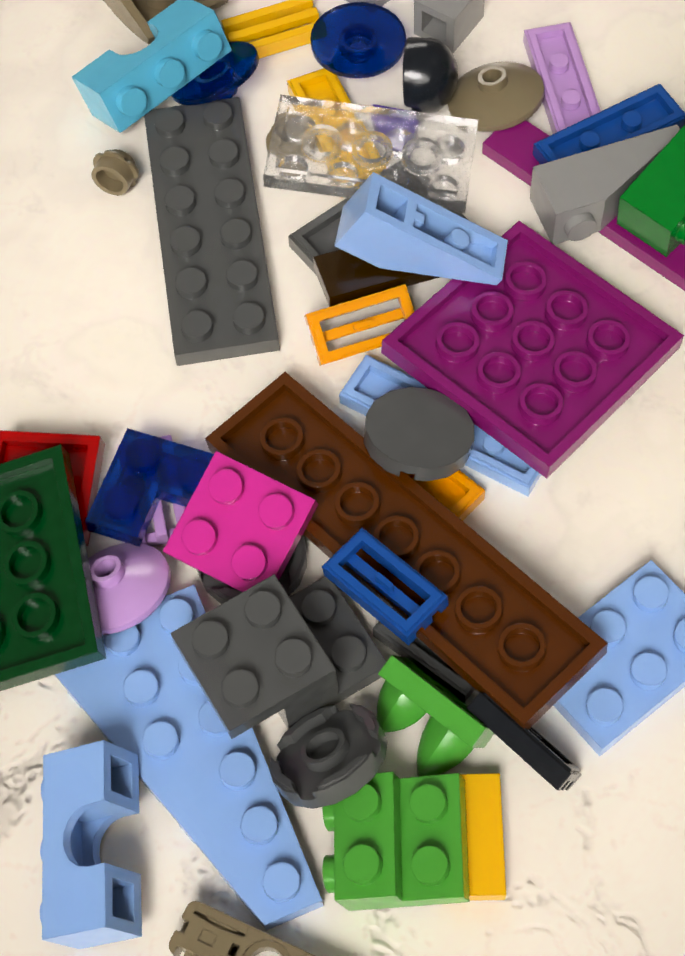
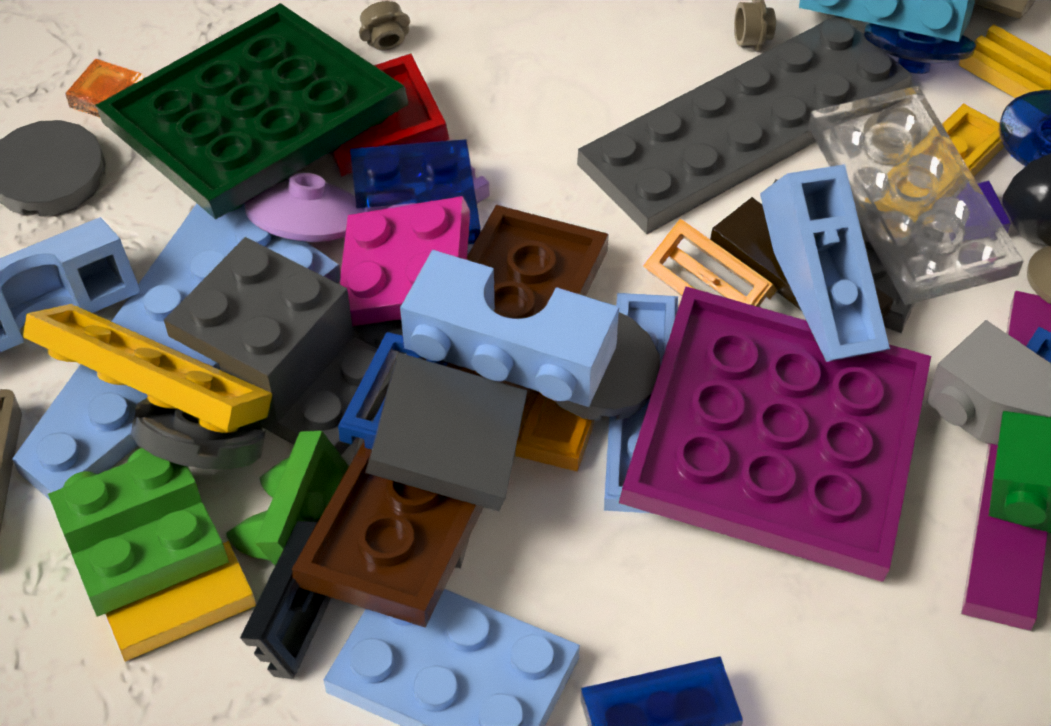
camera: 60 degrees right, 10 degrees down
(250, 770) = (148, 366): none -> yellow plate
(361, 504) = (553, 352): none -> light blue arch
(455, 559) = (447, 432): none -> dark grey tile

